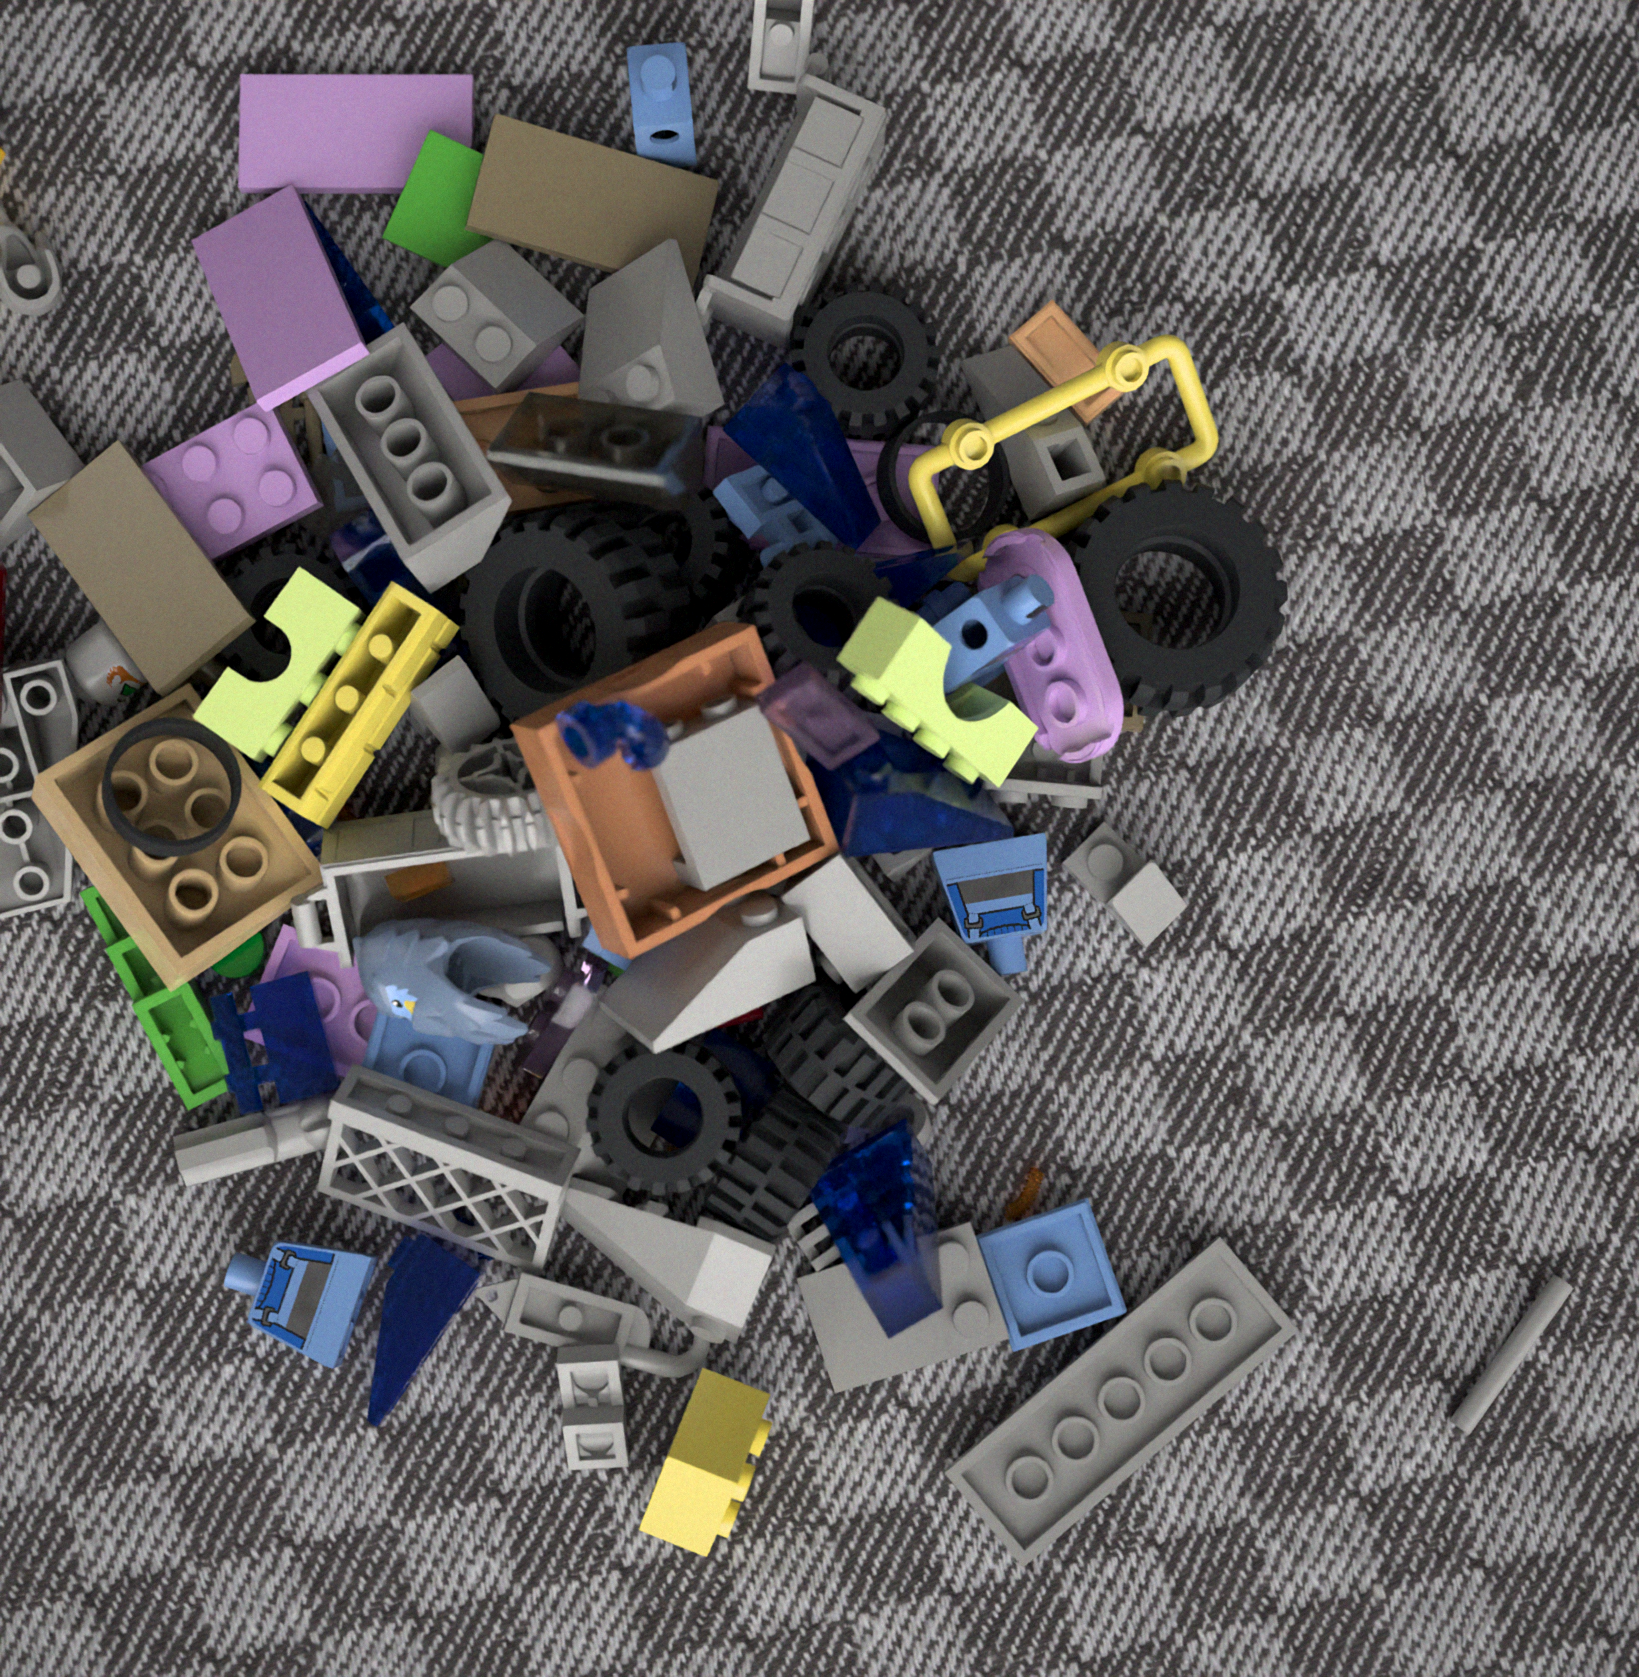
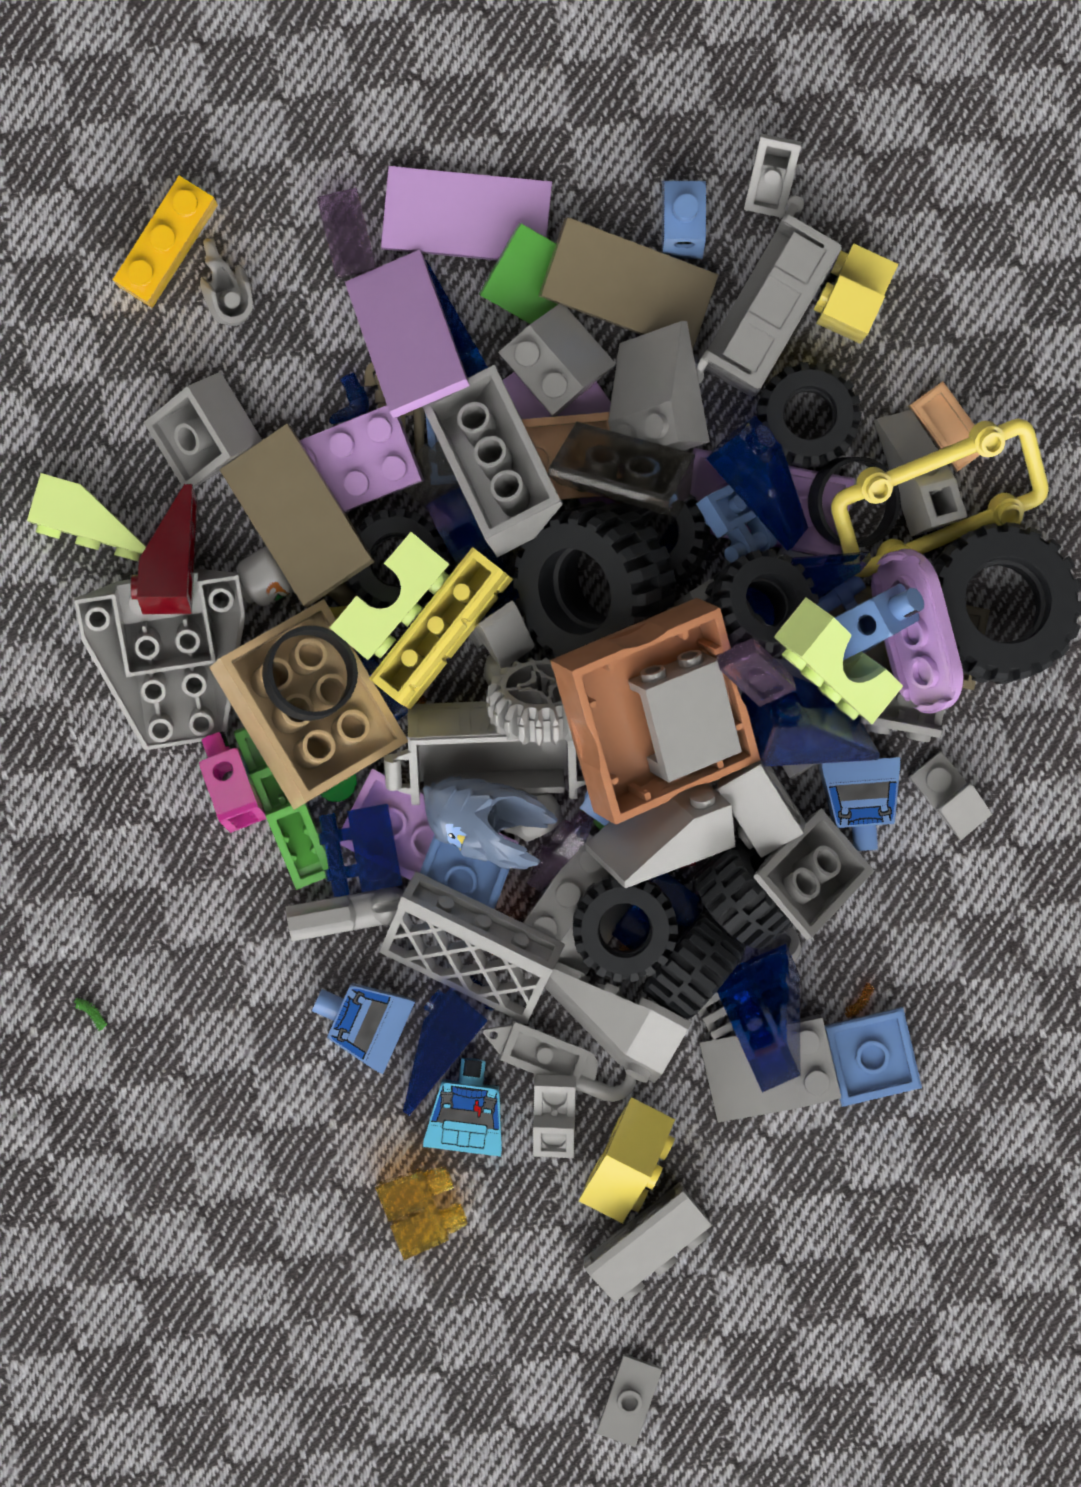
camera: 10 degrees right, 5 degrees up
(76, 967) = (234, 798): none -> dark pink torso
(187, 171) = (346, 233): none -> clear purple plate
(220, 398) = (357, 400): none -> clear blue animal
(402, 1539) = (416, 1192): none -> clear yellow hips
(419, 880) = (470, 751): clear orange tile -> none
(464, 1416) = (466, 1113): none -> torso
(596, 731) = (619, 675): clear blue arm -> none
(746, 1585) = (647, 1244): none -> light grey slope
(914, 188) = (857, 293): none -> light yellow brick
(1120, 1401) = (911, 1146): light grey plate -> none

